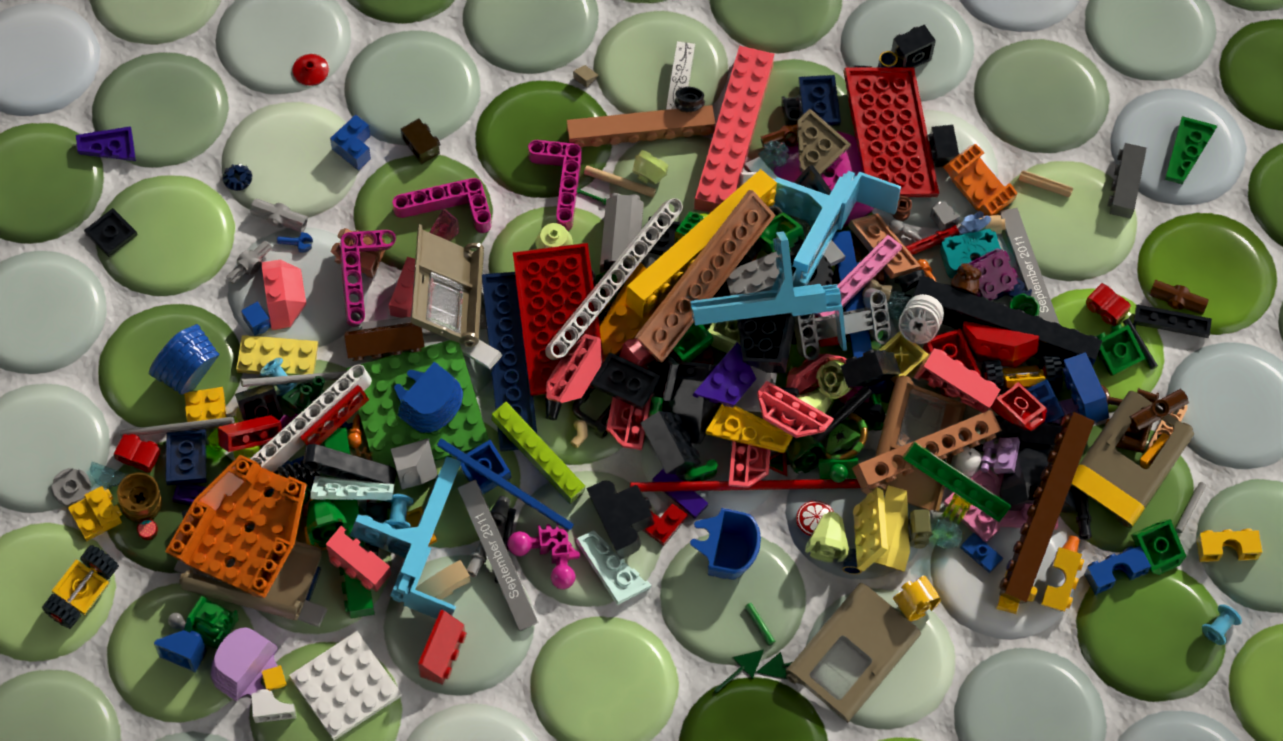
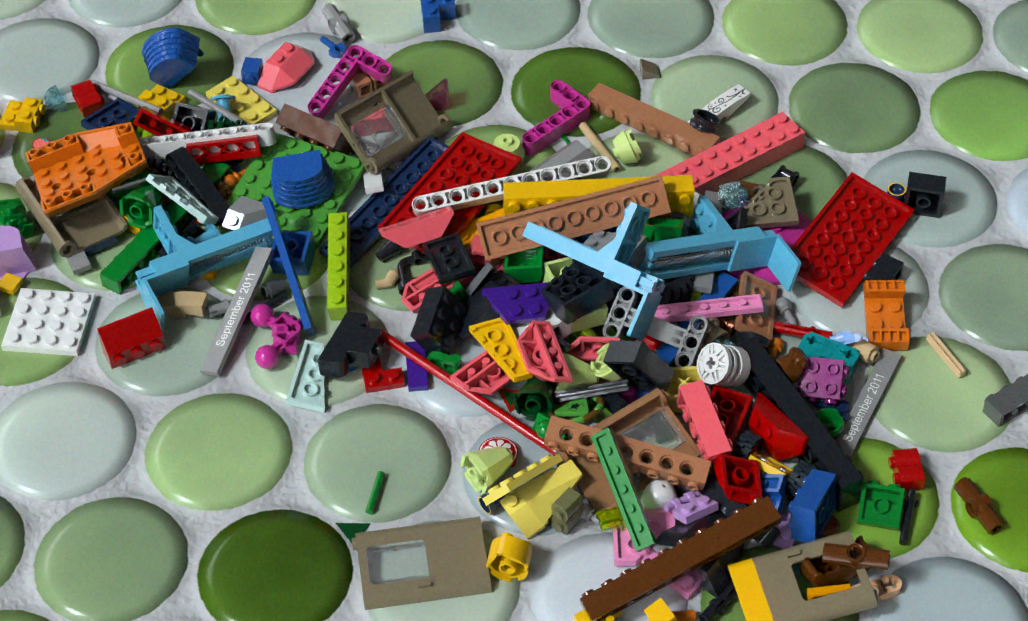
camera: 45 degrees right, 15 degrees down
(70, 486) = (27, 88): light grey tile -> none
(134, 488) = (54, 118): pearl gold wheel -> none
(249, 262) = (288, 35): light grey axle -> none
(357, 561) = (135, 237): coral wedge -> none
(420, 140) = (483, 38): dark brown brick -> none
(446, 201) = (477, 85): dark pink beam -> none
(731, 543) = (404, 417): blue piece -> none
(748, 662) = (336, 513): dark green piece -> none
(820, 96) = (814, 187): dark blue plate -> none
(903, 208) = (800, 294): copper wheel -> none
(940, 532) = (586, 532): clear light blue brick -> none
(944, 216) = (831, 320): light grey brick -> none
(981, 553) = (603, 566): blue plate -> none
(1172, 321) = (954, 519): black plate -> none

